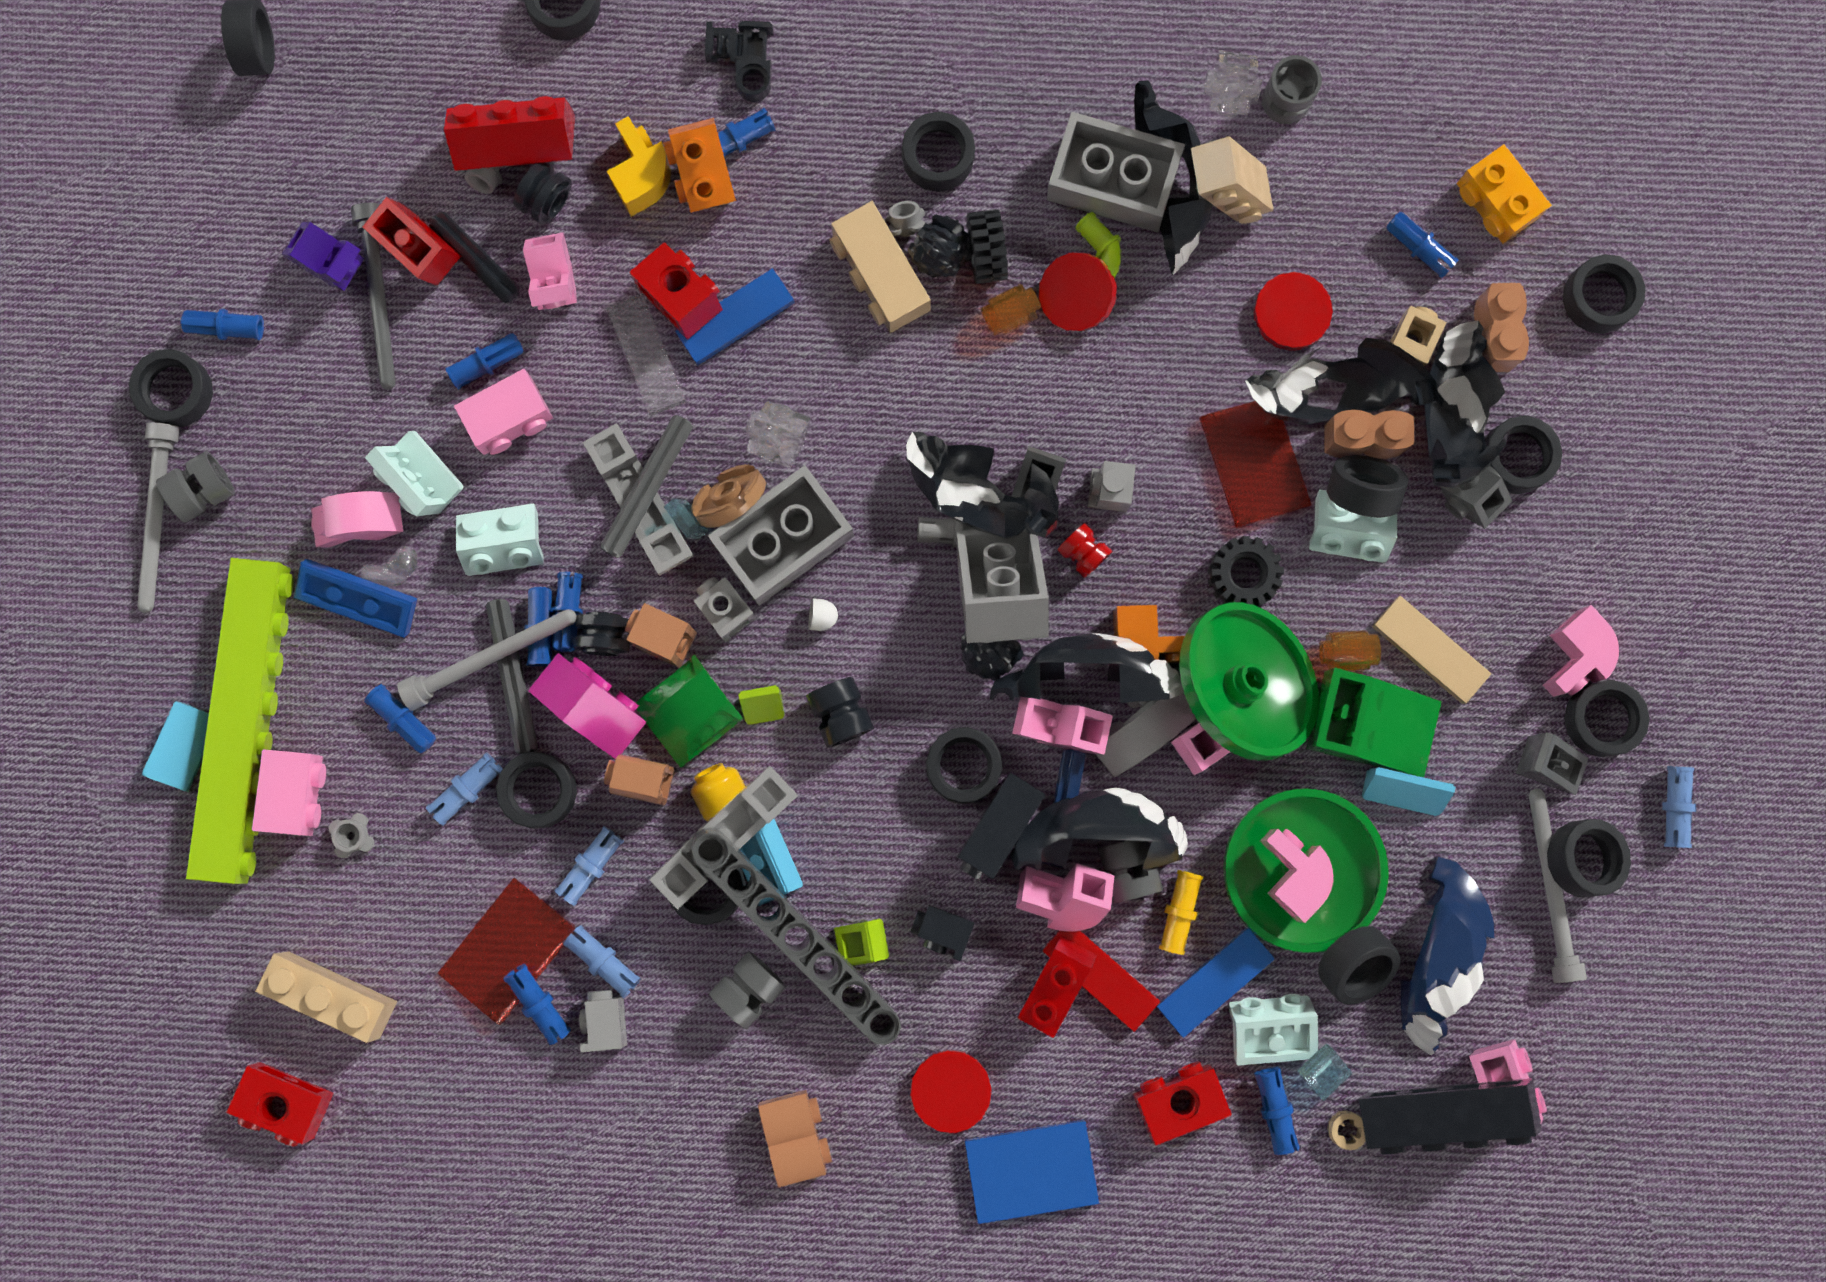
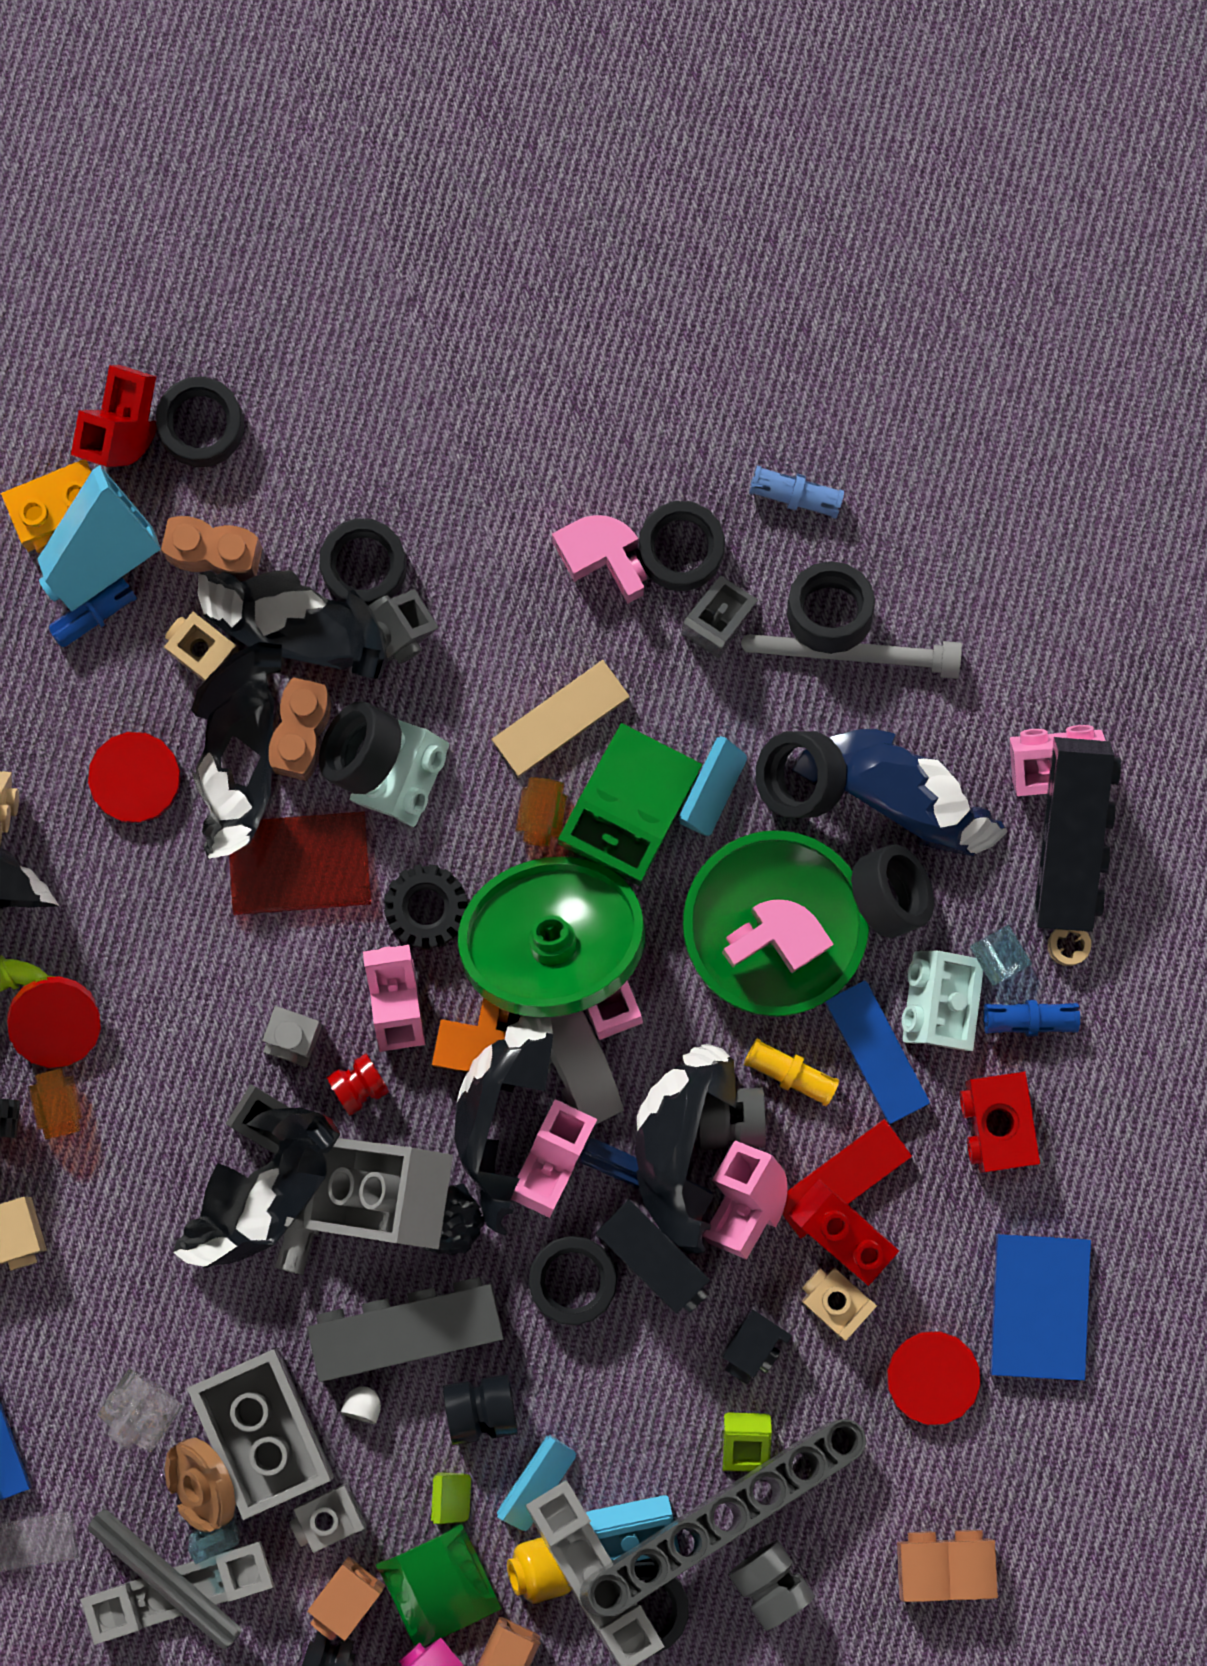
camera: 80 degrees left, 0 degrees up
(800, 776) = (538, 1477): none -> medium azure slope
(890, 636) = (405, 1331): none -> dark grey brick
(981, 1001) = (850, 1316): none -> tan brick
(1165, 563) = (394, 998): none -> bright pink brick
(1439, 889) = (830, 777): none -> black tyre
(1484, 229) = (95, 542): none -> medium azure slope
(1583, 230) = (122, 427): none -> red brick

